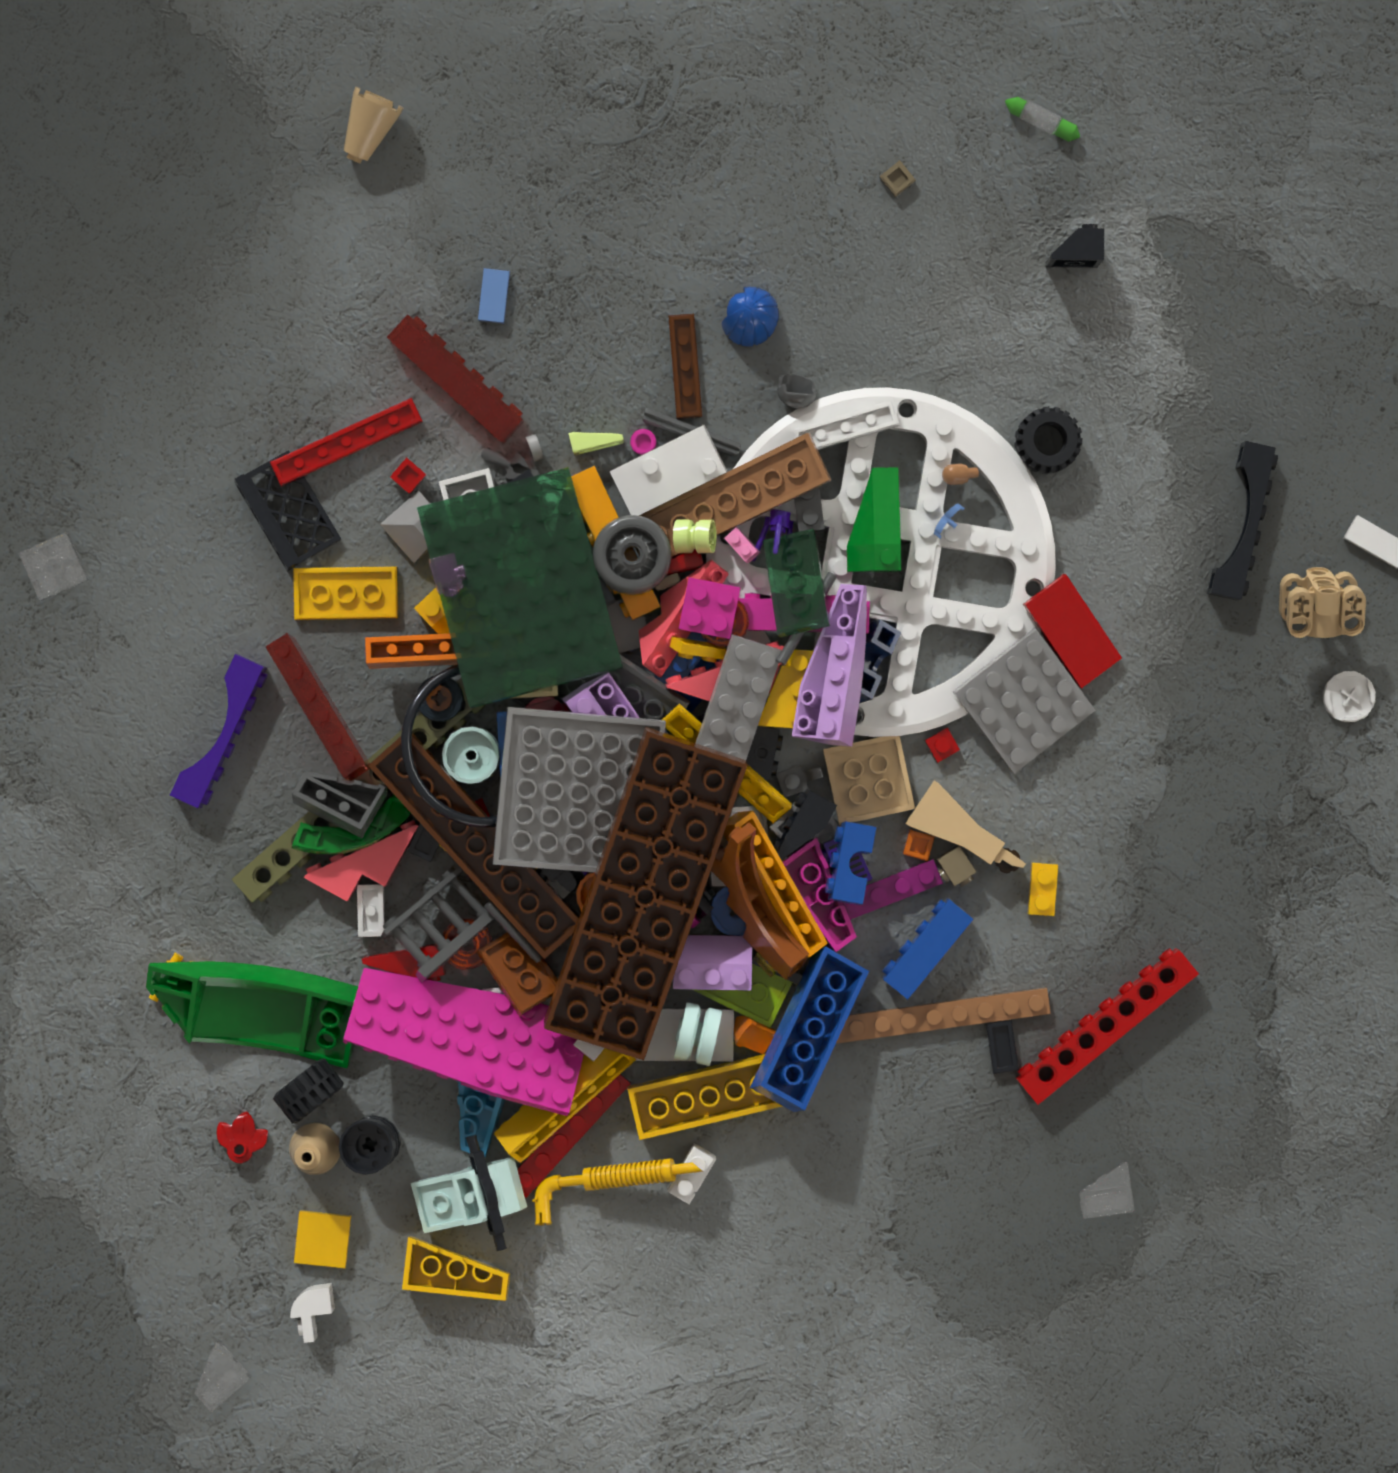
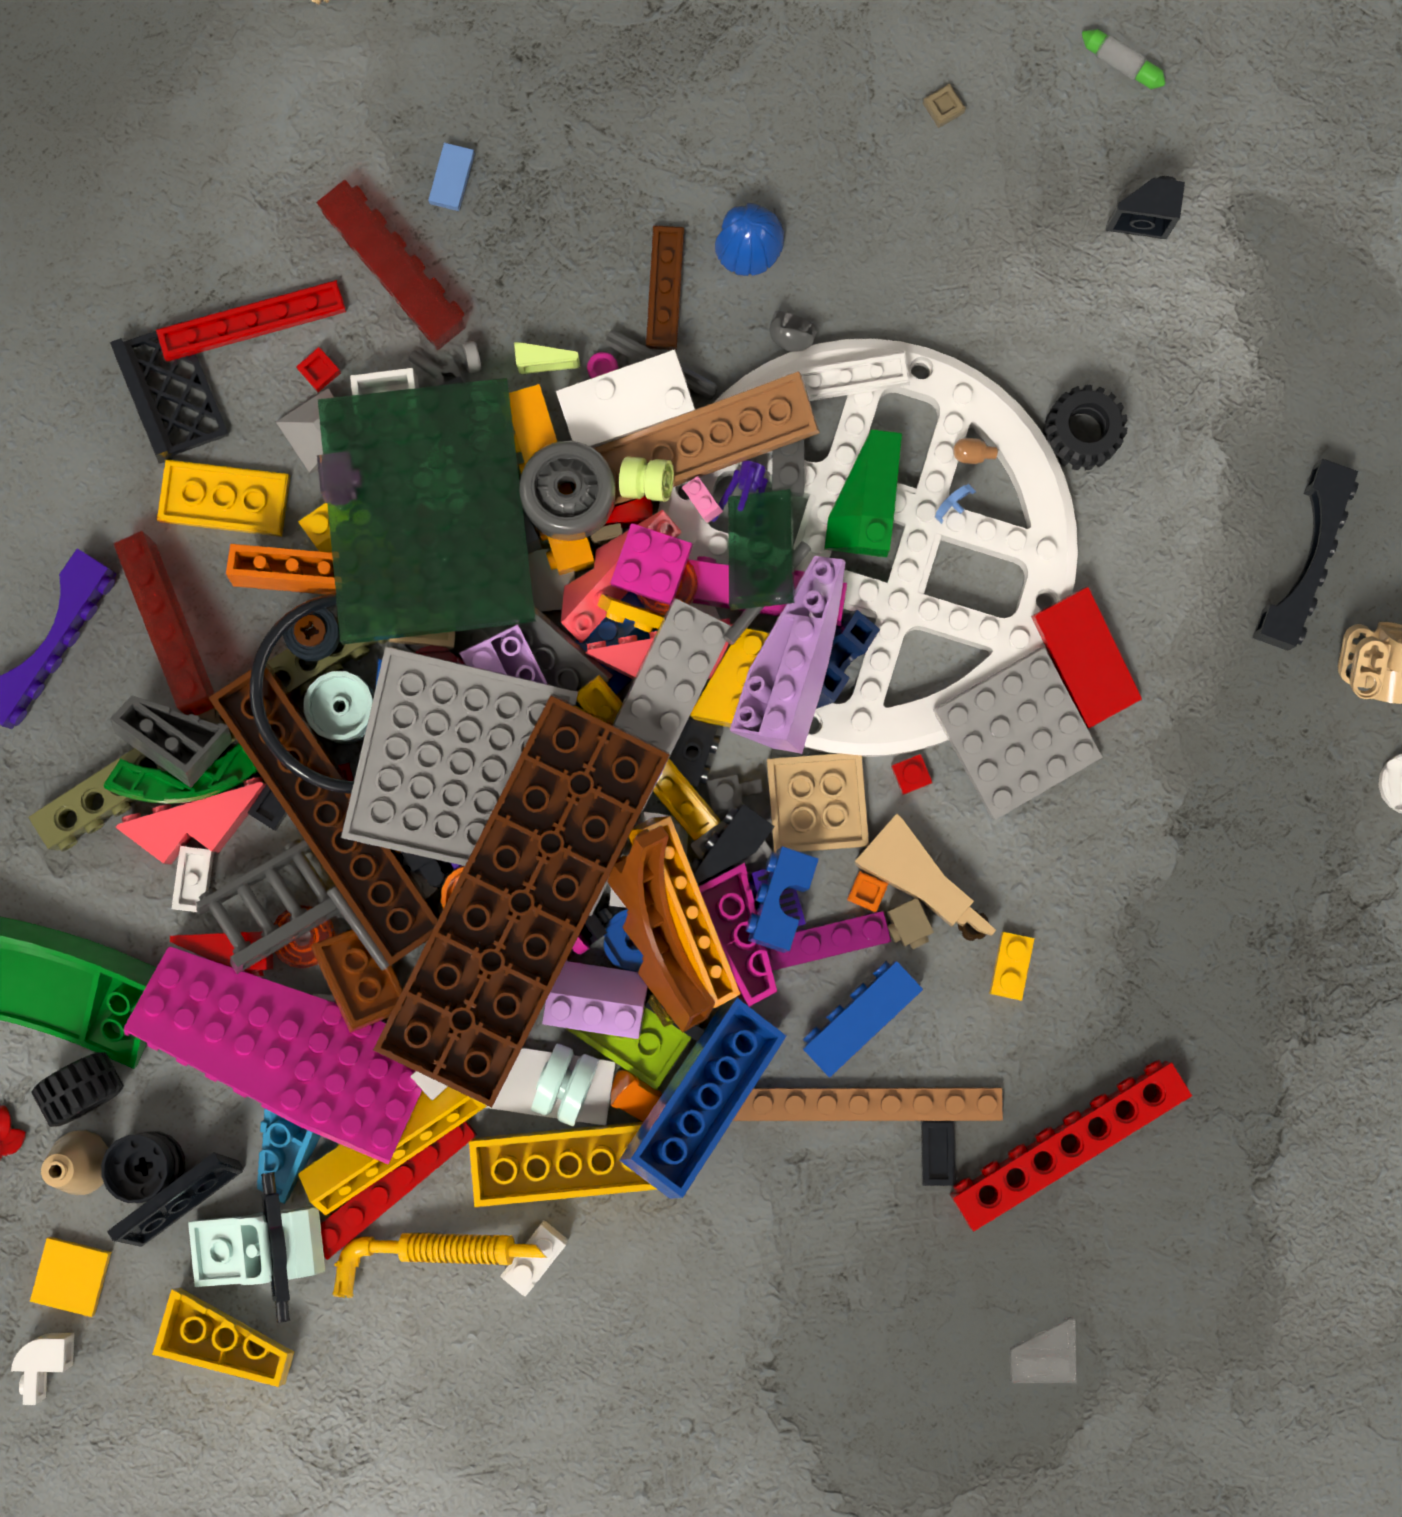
camera: 10 degrees right, 5 degrees down
(400, 1167) = (176, 1200): none -> black tile

